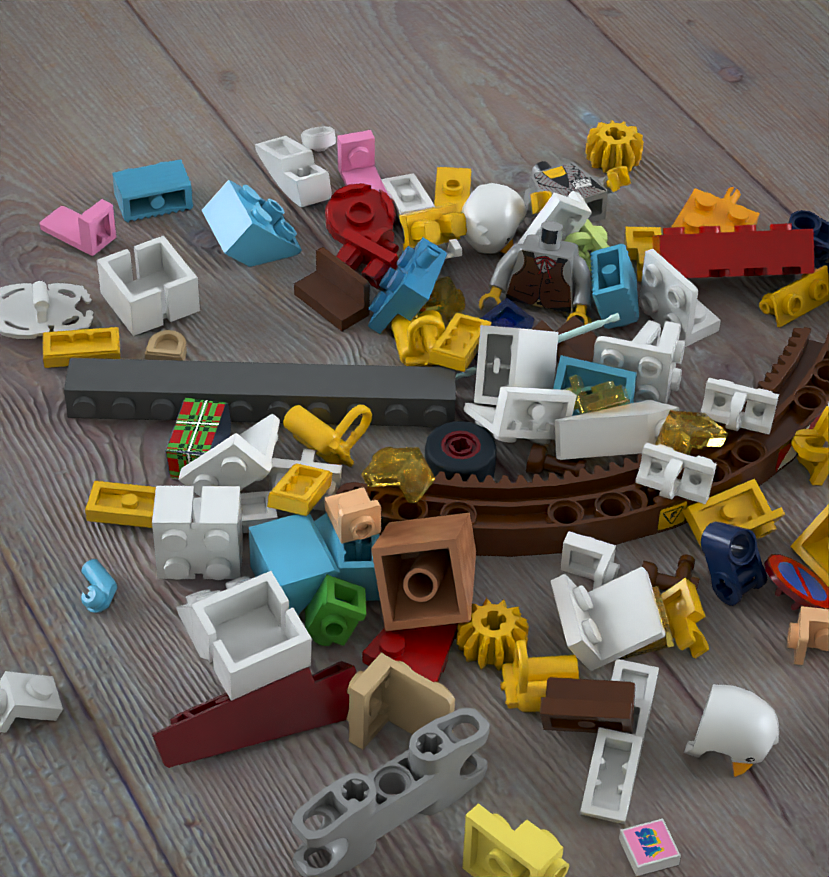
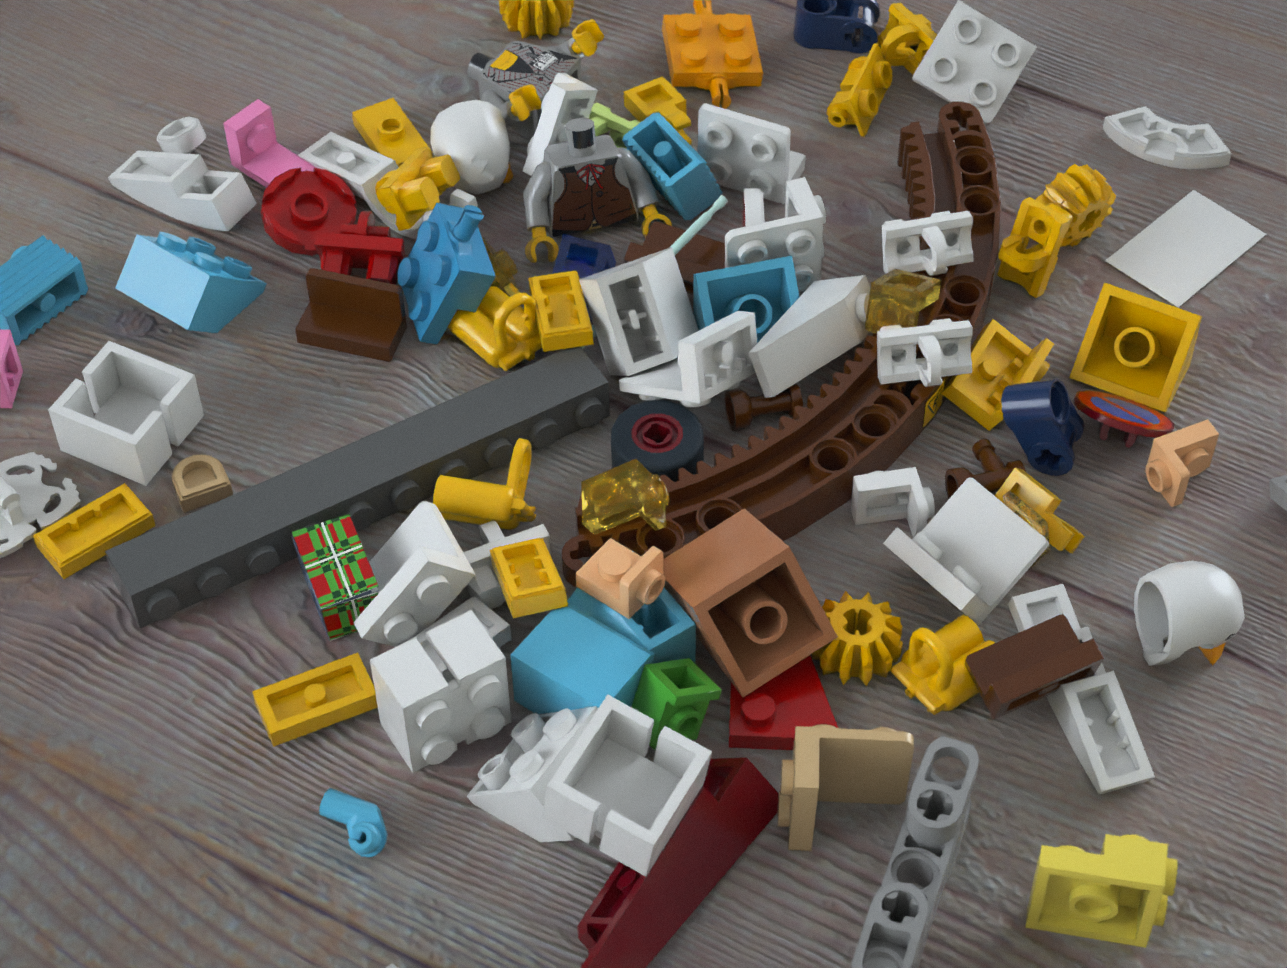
camera: 30 degrees left, 5 degrees up
(604, 395) = (775, 301): clear yellow bracket -> none
(649, 847) = (1198, 791): tile -> none
(737, 252) = (778, 65): red wedge -> none

